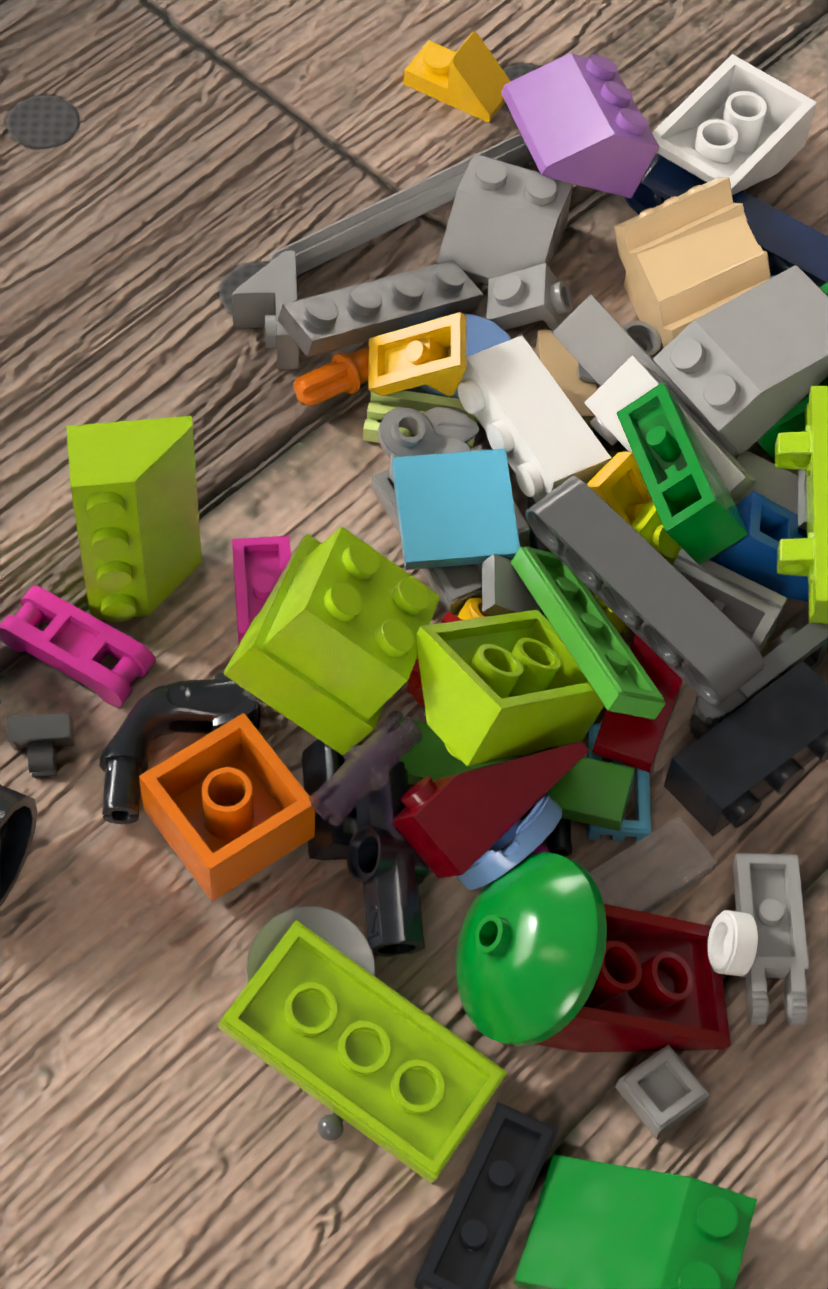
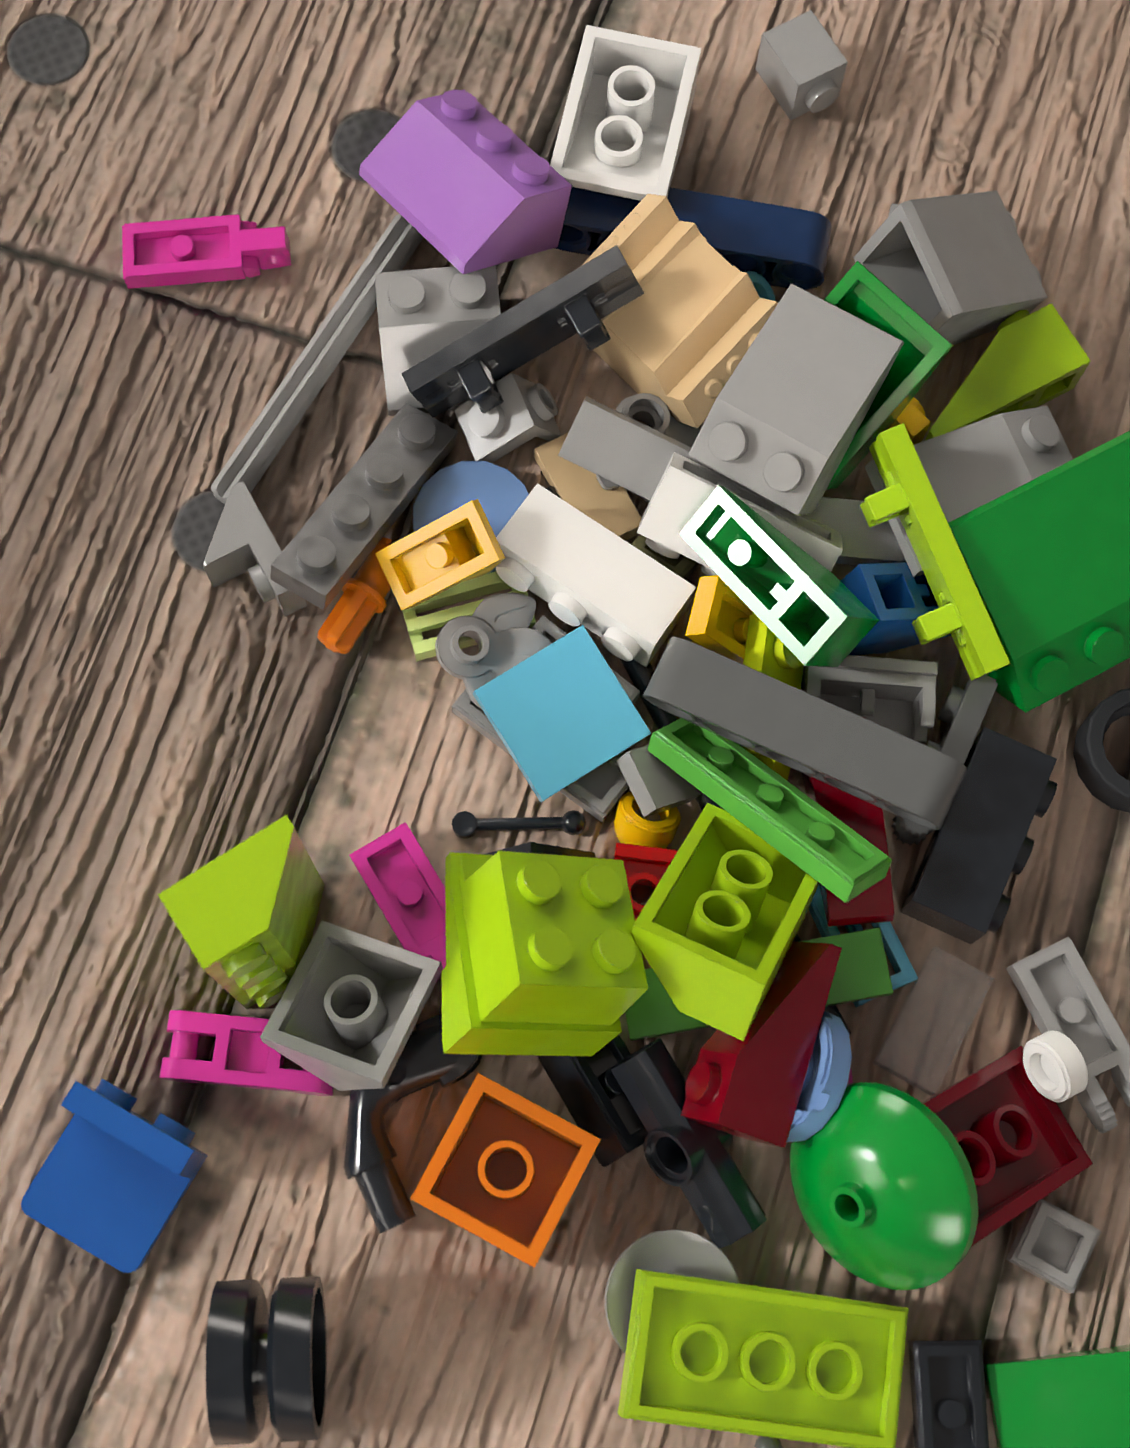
camera: 25 degrees left, 15 degrees up
(40, 736) = (274, 1181): dark grey tile -> none
(166, 631) = (351, 1008): none -> light grey slope
(353, 101) = (200, 250): none -> dark pink hinge
(366, 768) = (635, 1080): pin -> none
(461, 79) = (304, 168): yellow slope -> none
(568, 233) = (523, 333): none -> black hinge

